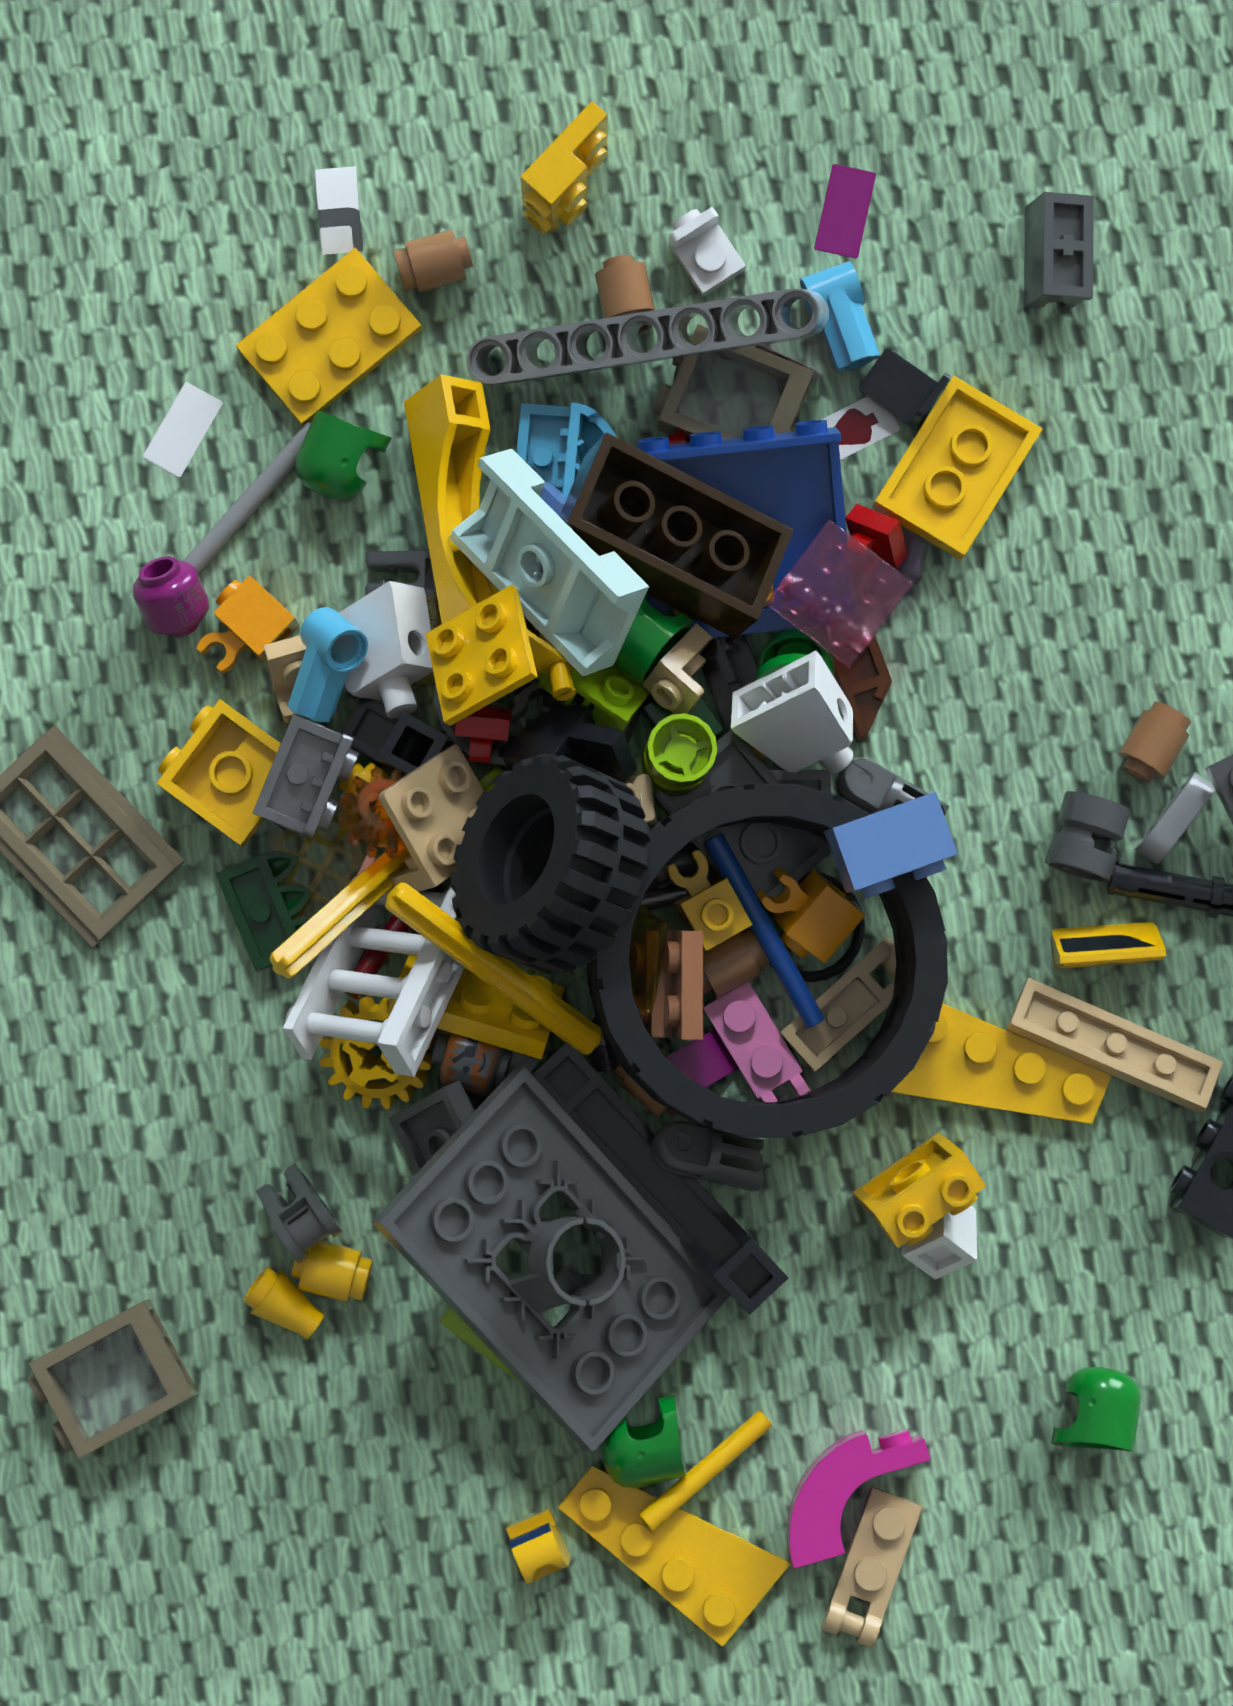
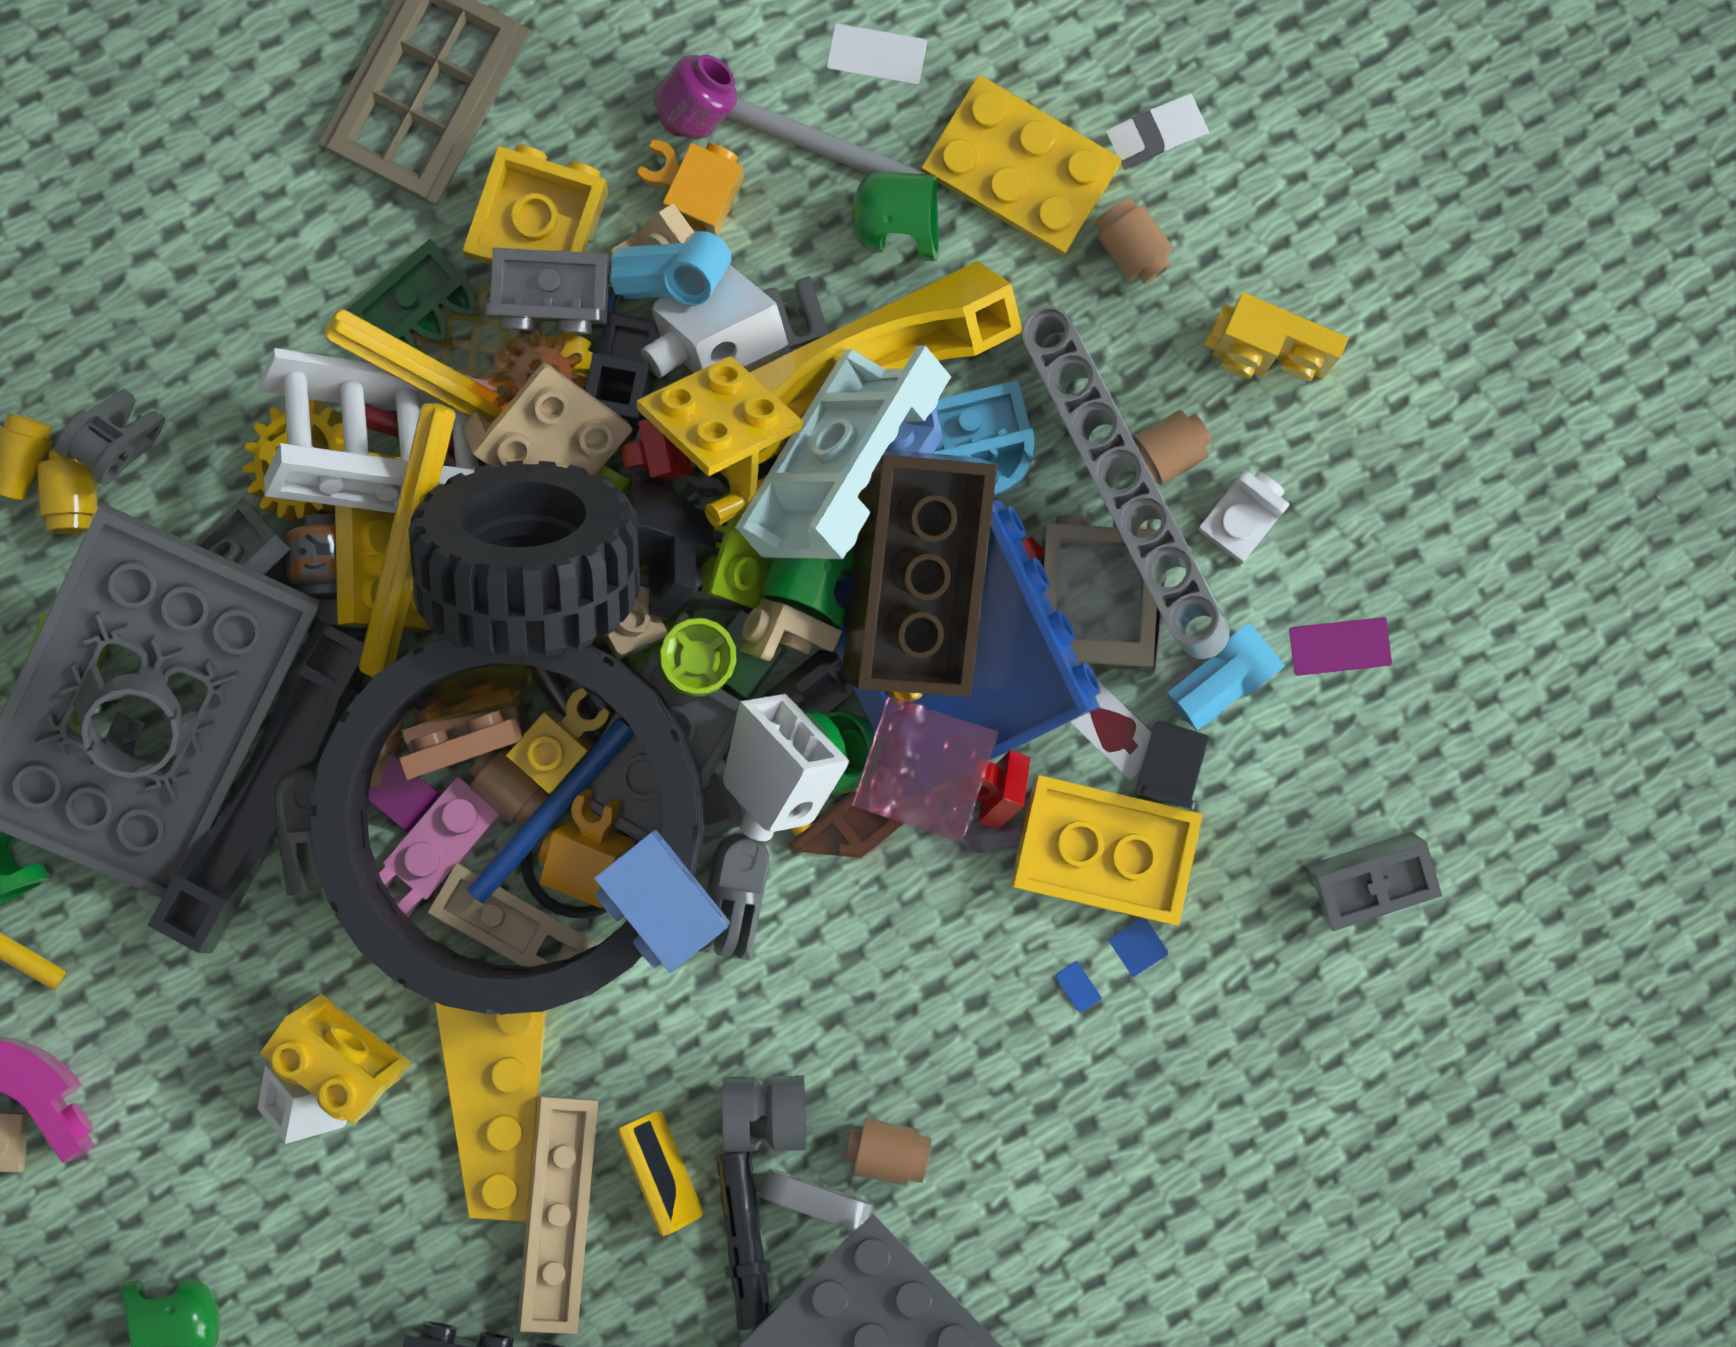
camera: 70 degrees right, 0 degrees up
(1048, 473) = (1136, 947): none -> blue sticker

